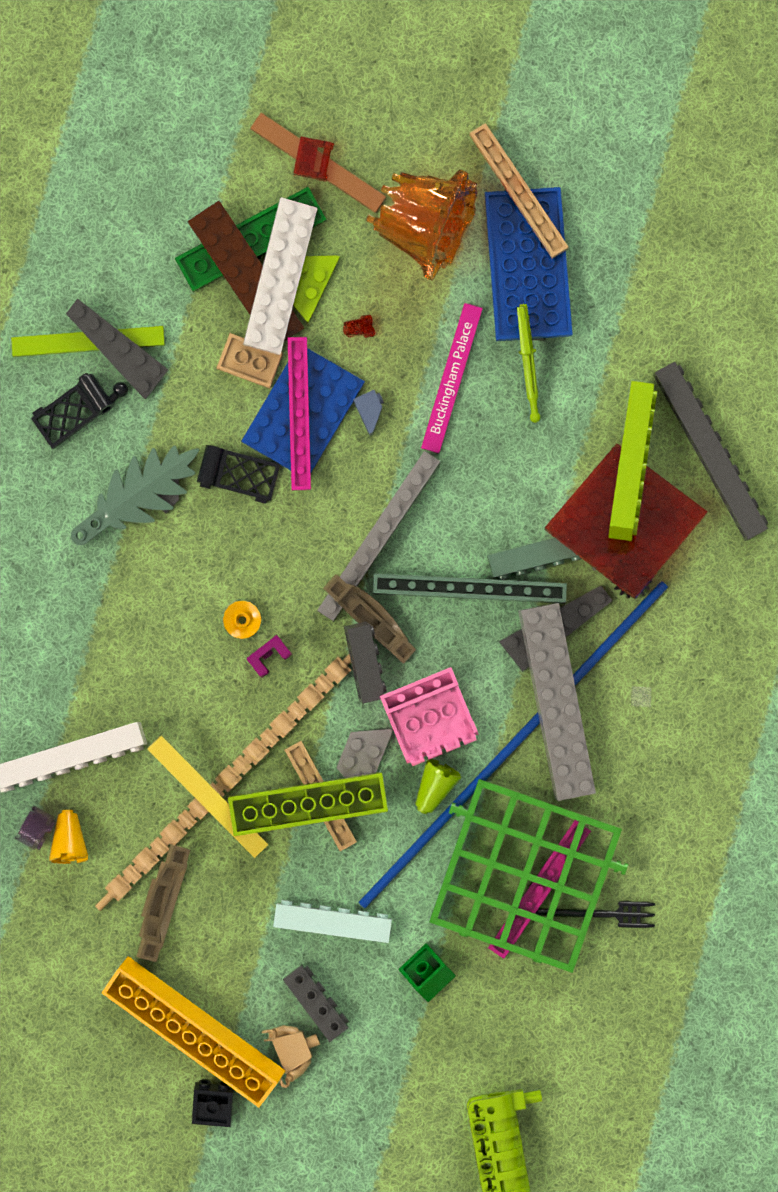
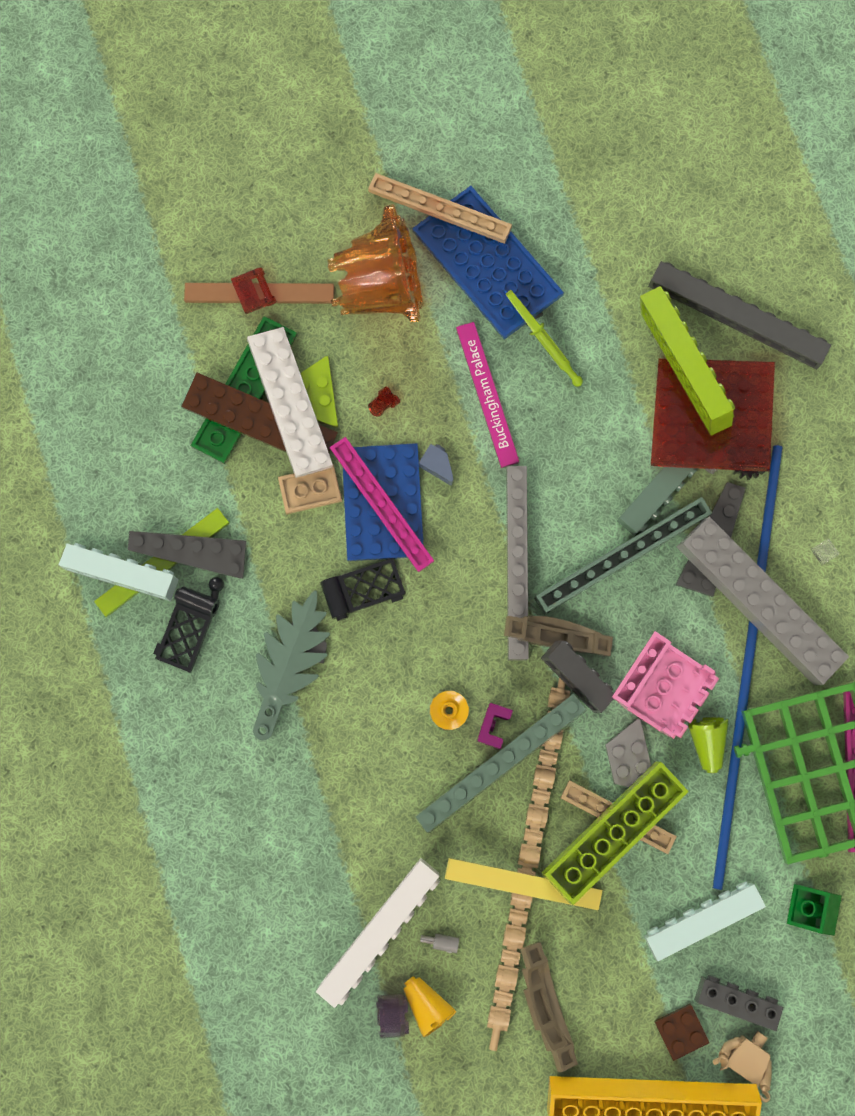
camera: 30 degrees left, 5 degrees down
(45, 325) = (119, 572): none -> light aqua brick
(112, 799) = (442, 942): none -> light grey piece
(254, 690) = (501, 763): none -> sand green brick
(255, 995) = (681, 1032): none -> reddish brown plate

